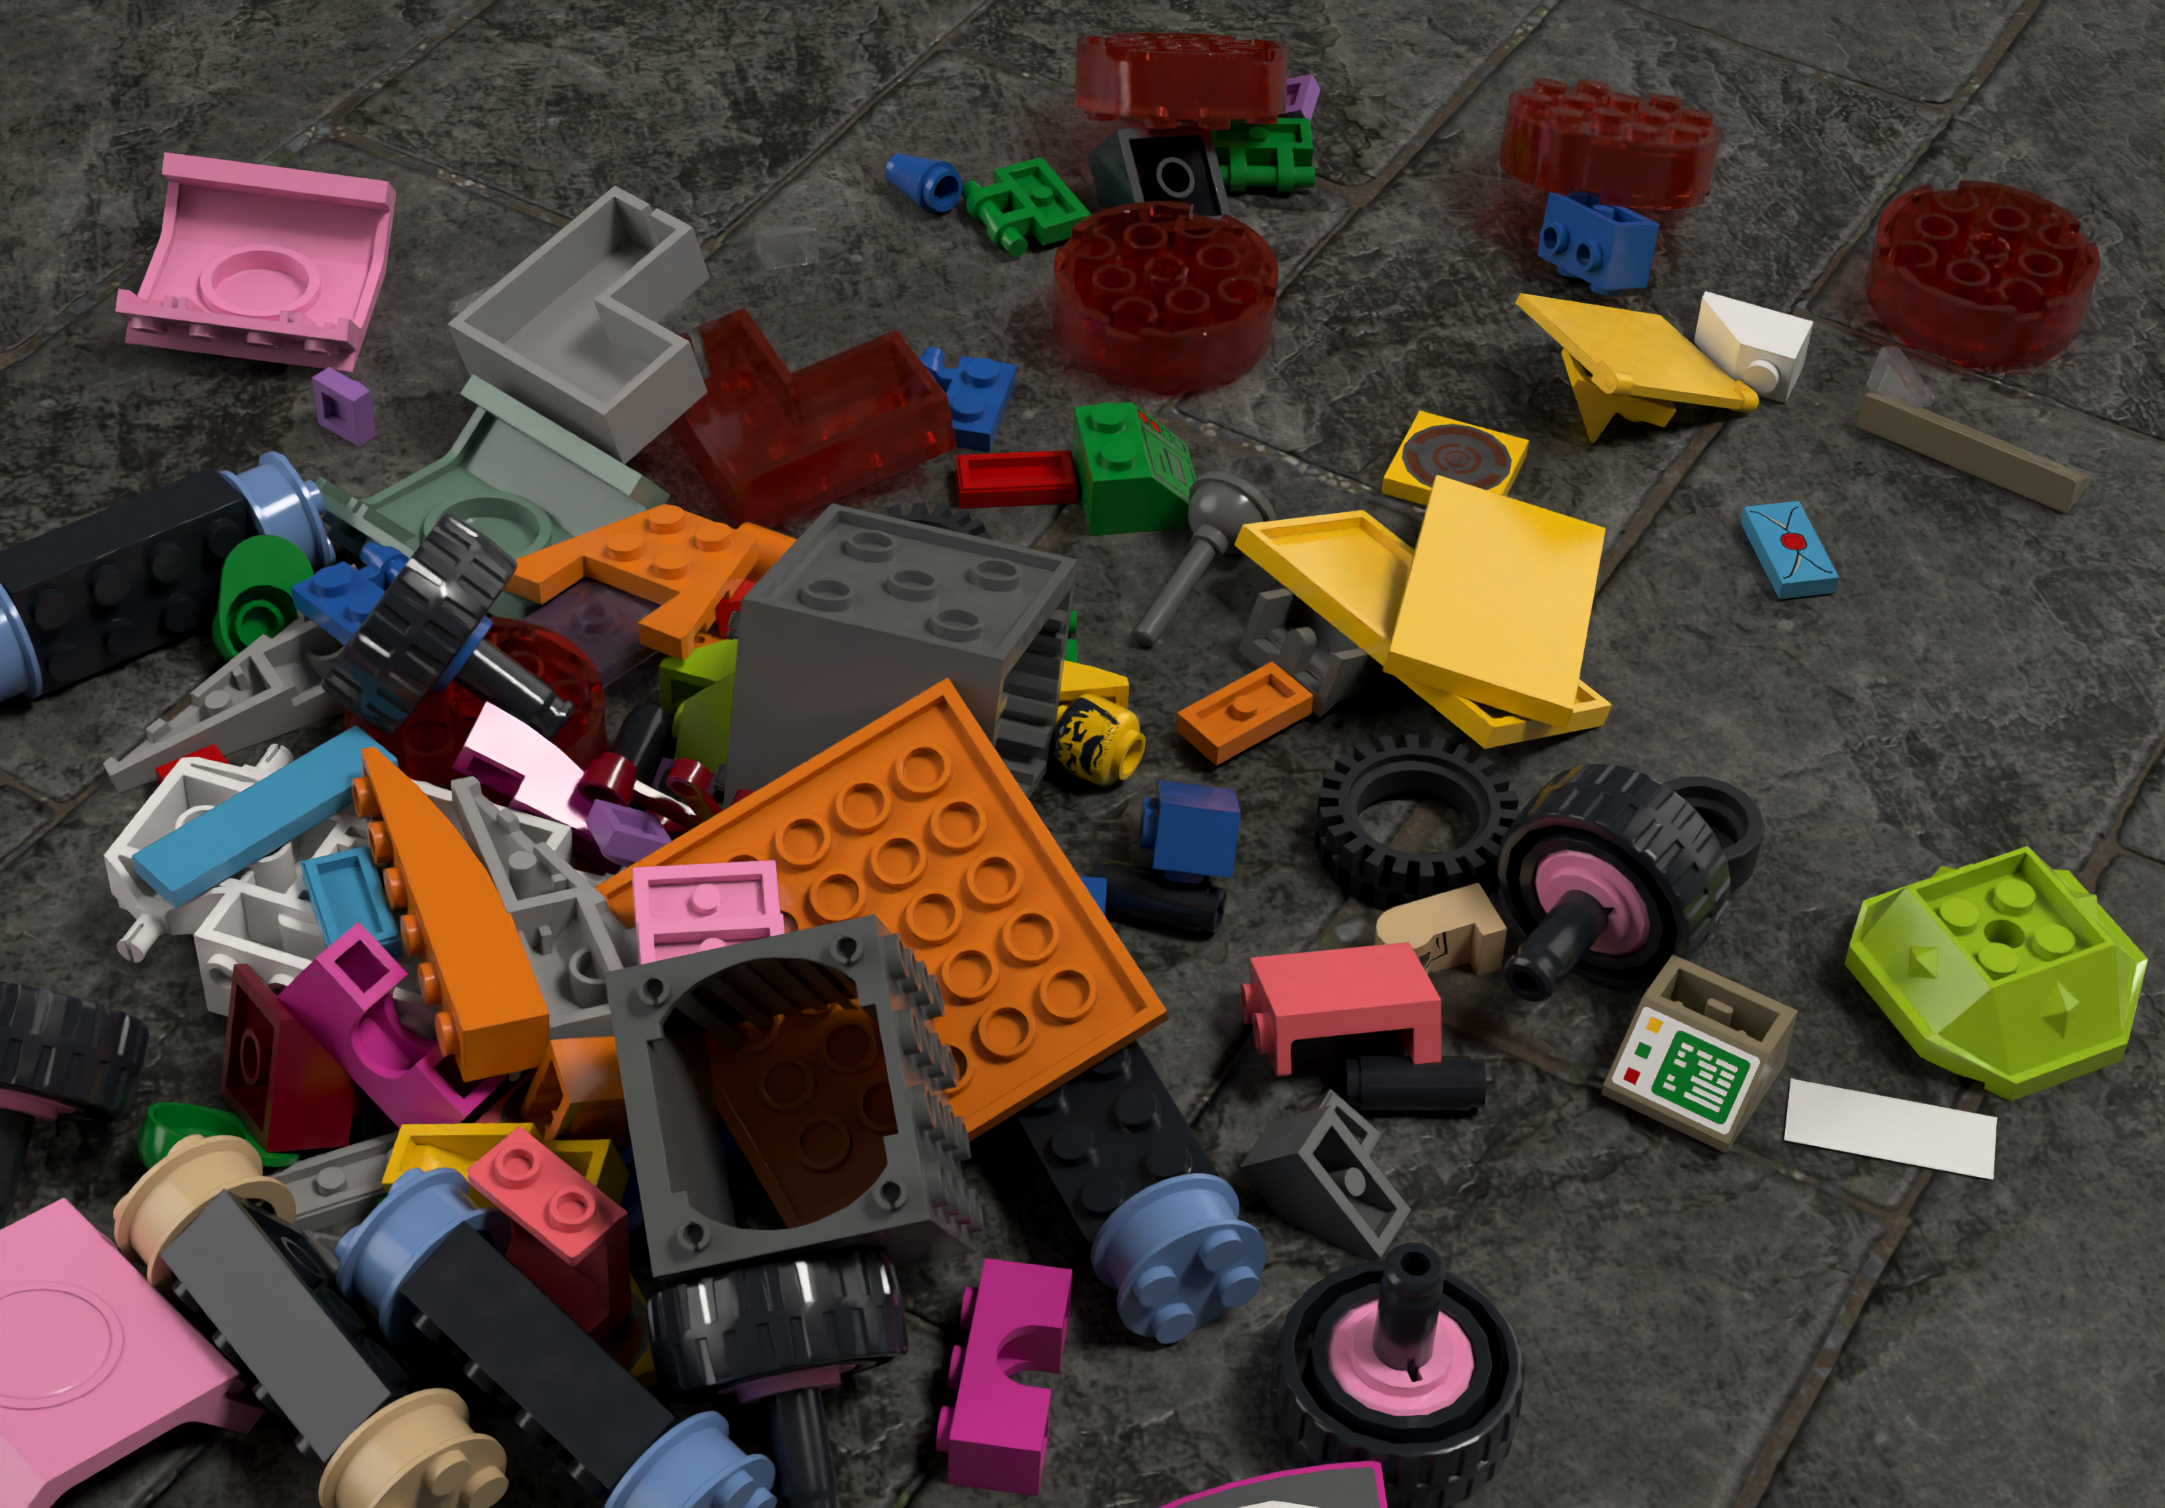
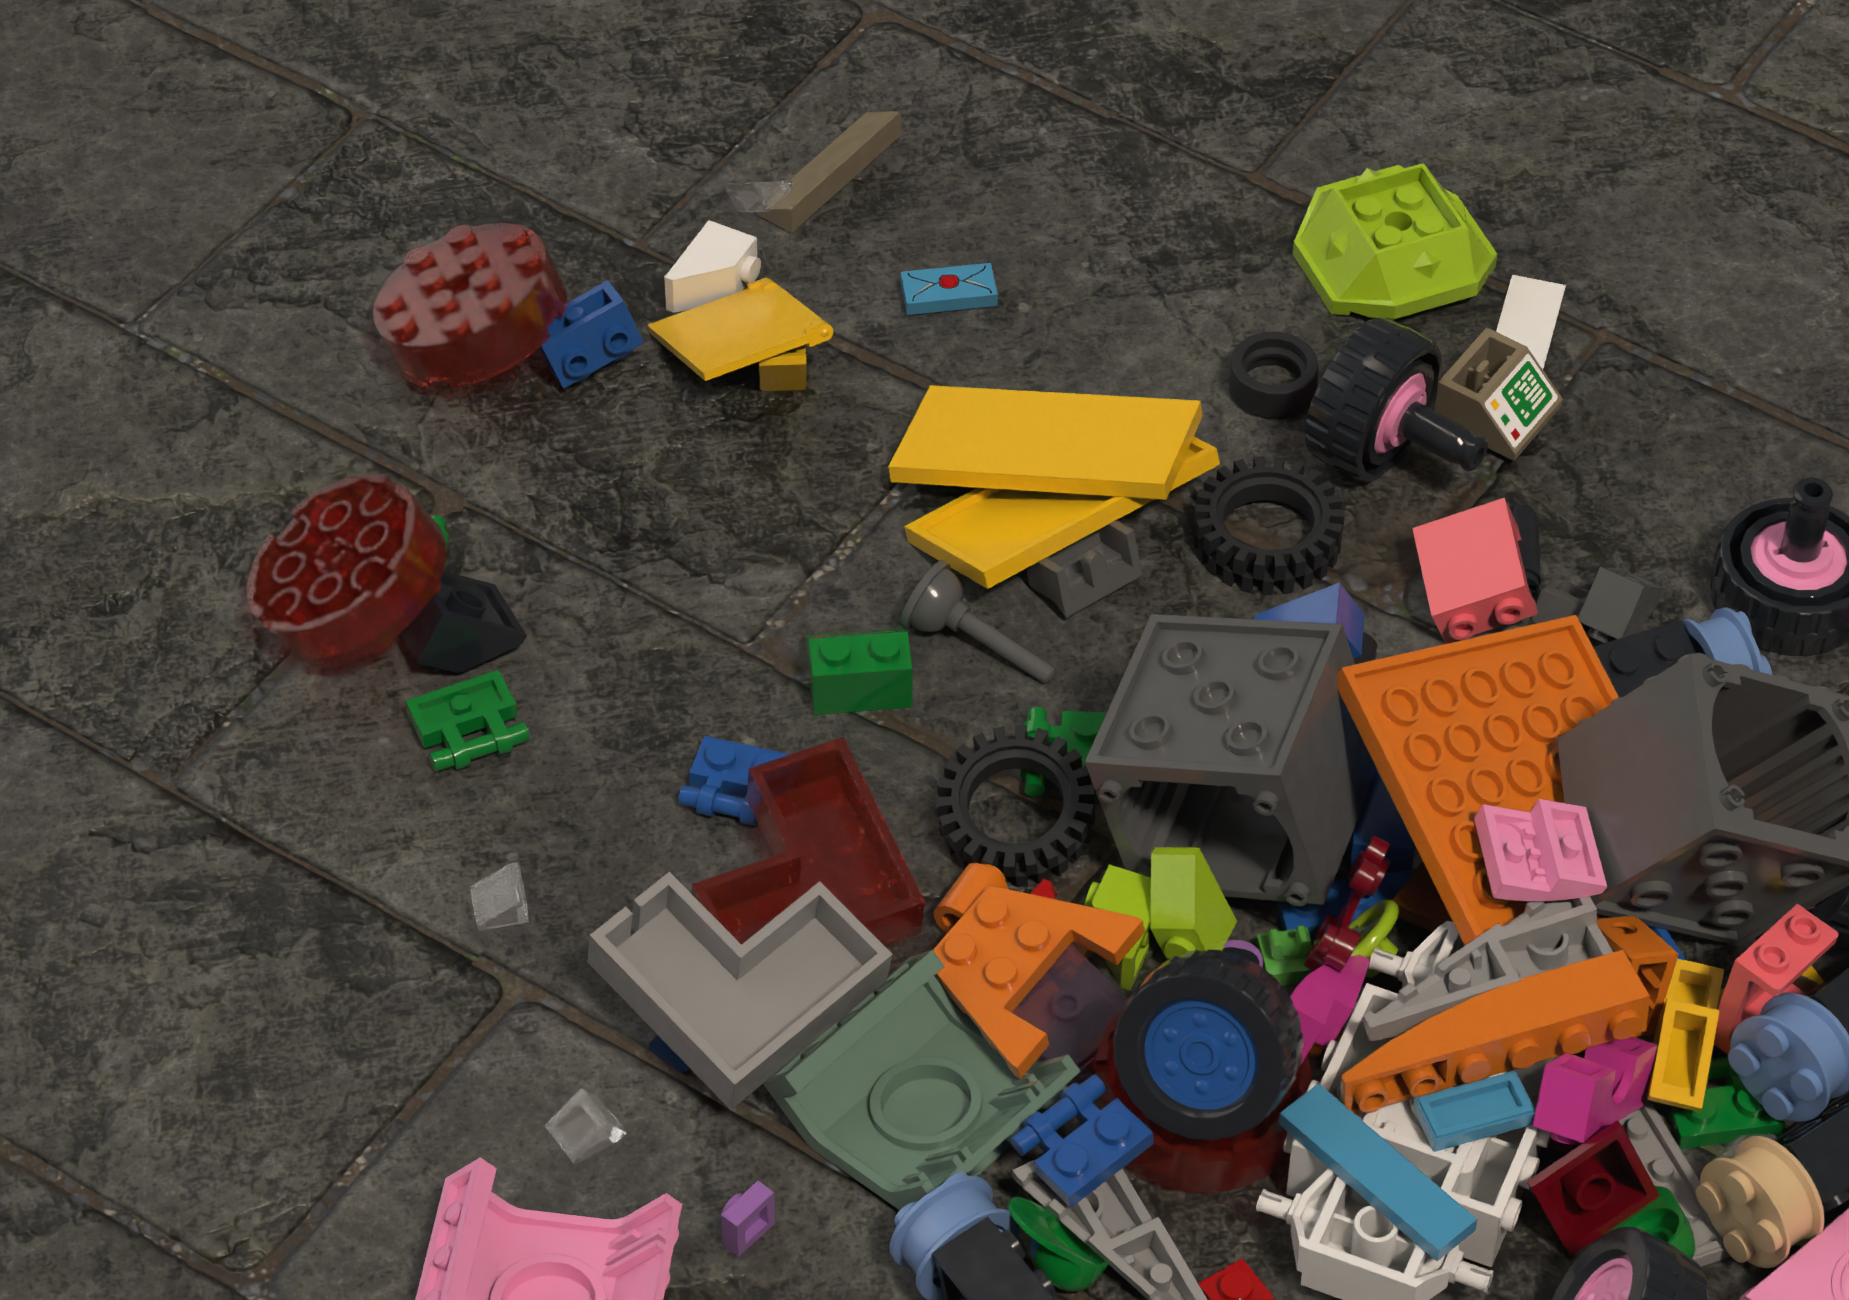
camera: 85 degrees left, 5 degrees up
(624, 832) = (1386, 939): medium lavender plate -> none
(926, 181) = (422, 792): blue cone -> none
(1016, 479) = (855, 725): red tile -> none
(1164, 297) = (634, 621): clear red brick -> none
(1244, 713) = (1133, 600): orange plate -> none
(1448, 930) = (1377, 524): tan leg -> none
(1455, 452) = (840, 469): tile -> none
(1981, 273) = (637, 119): clear red brick -> none

